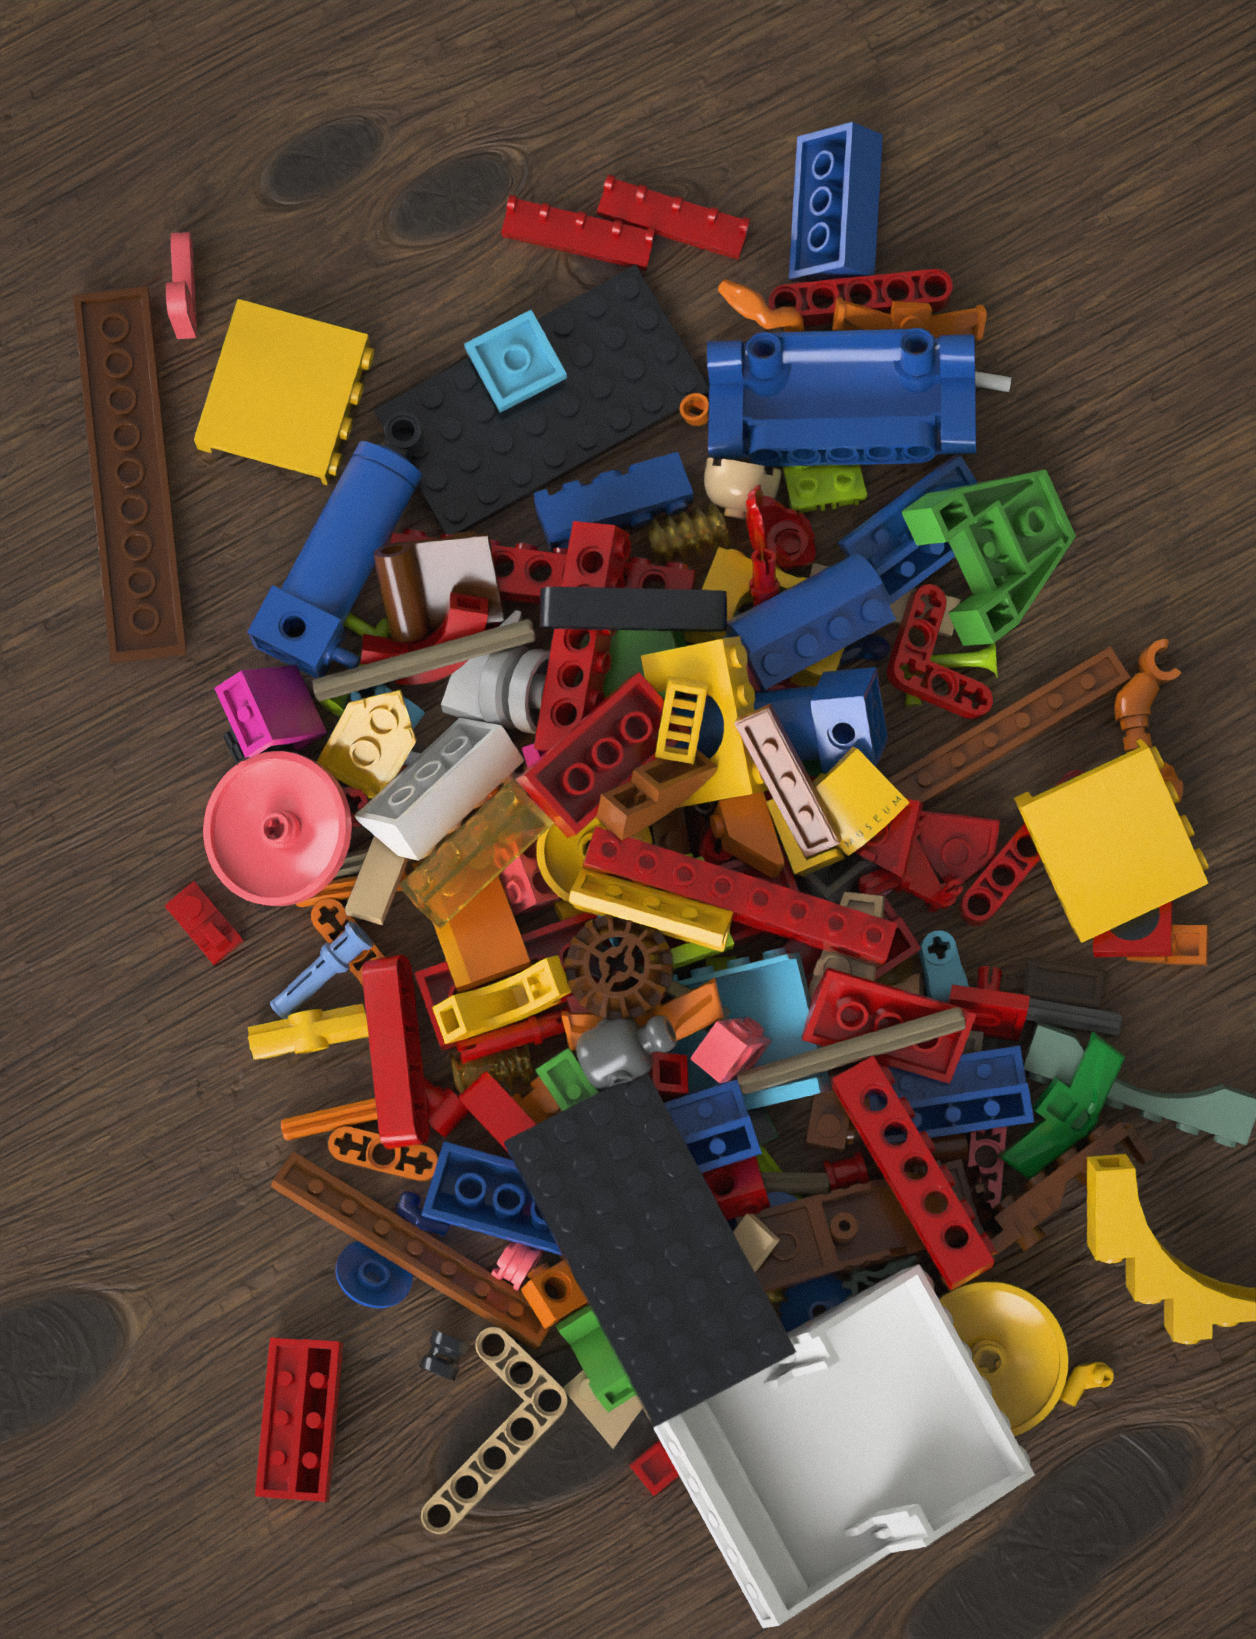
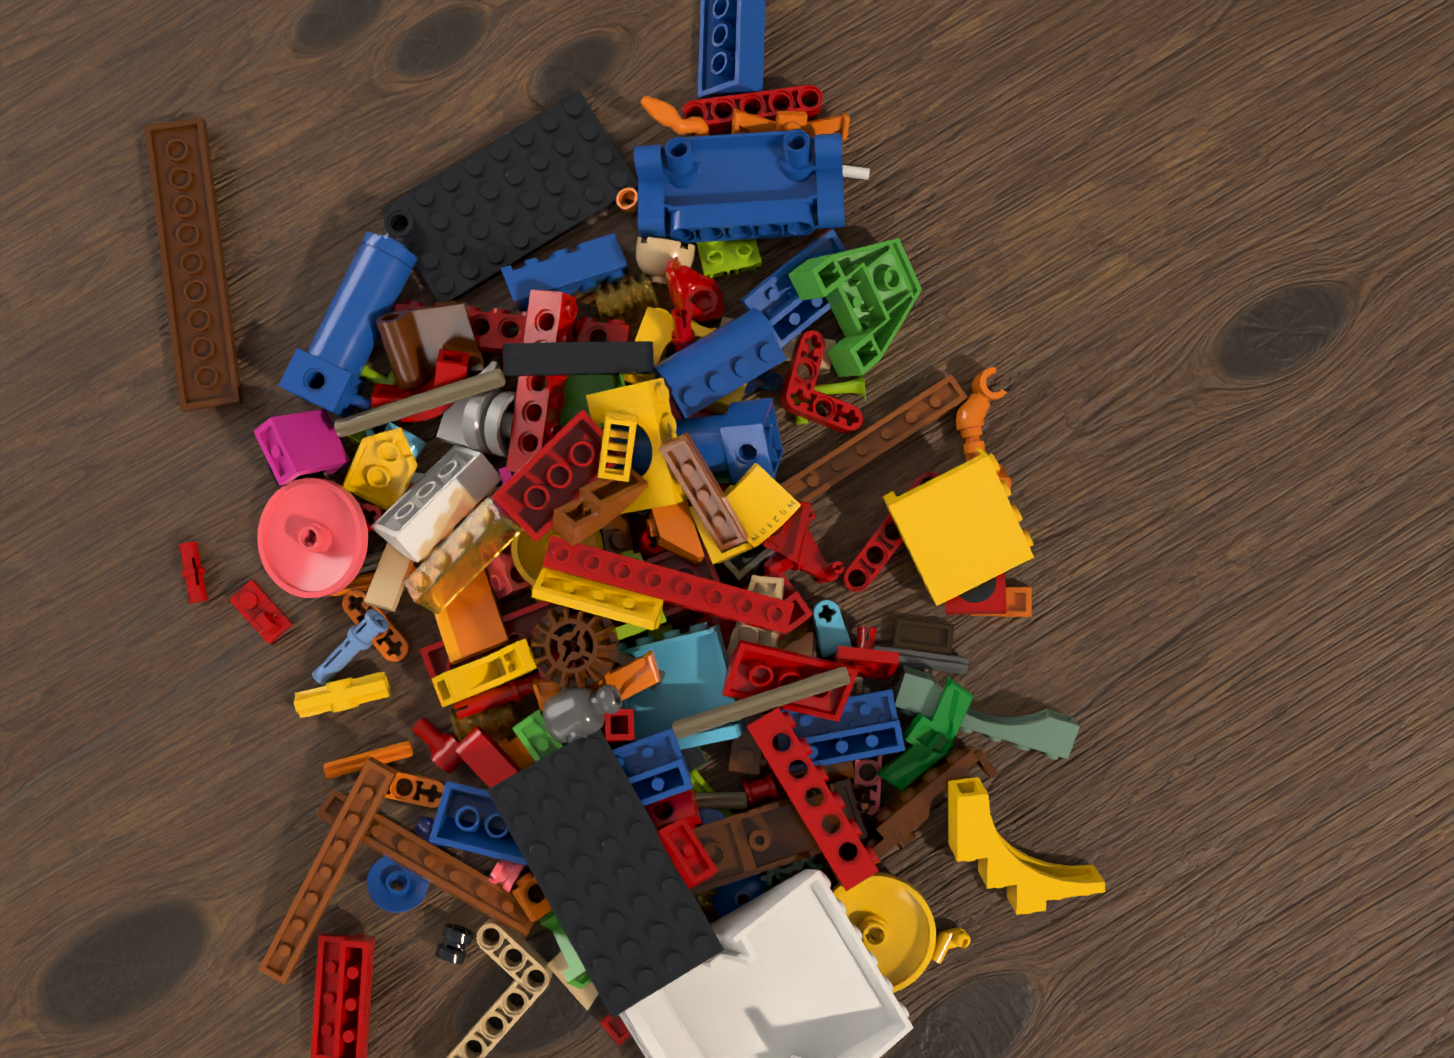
camera: 10 degrees left, 5 degrees up
(118, 869) = (193, 572): none -> red pin
(181, 292) = (225, 124): coral beam -> none
(284, 390) = (310, 195): yellow panel -> none
(287, 1251) = (327, 870): none -> dark orange plate
(395, 1052) = (407, 711): red beam -> none
(515, 361) = (487, 166): medium azure plate -> none
(578, 233) = (534, 67): red hinge -> none
(673, 217) = (607, 53): red hinge -> none
(731, 1048) = (666, 703): coral brick -> none
(753, 1230) = (687, 853): none -> red hinge
(958, 843) = (839, 530): red plate -> none

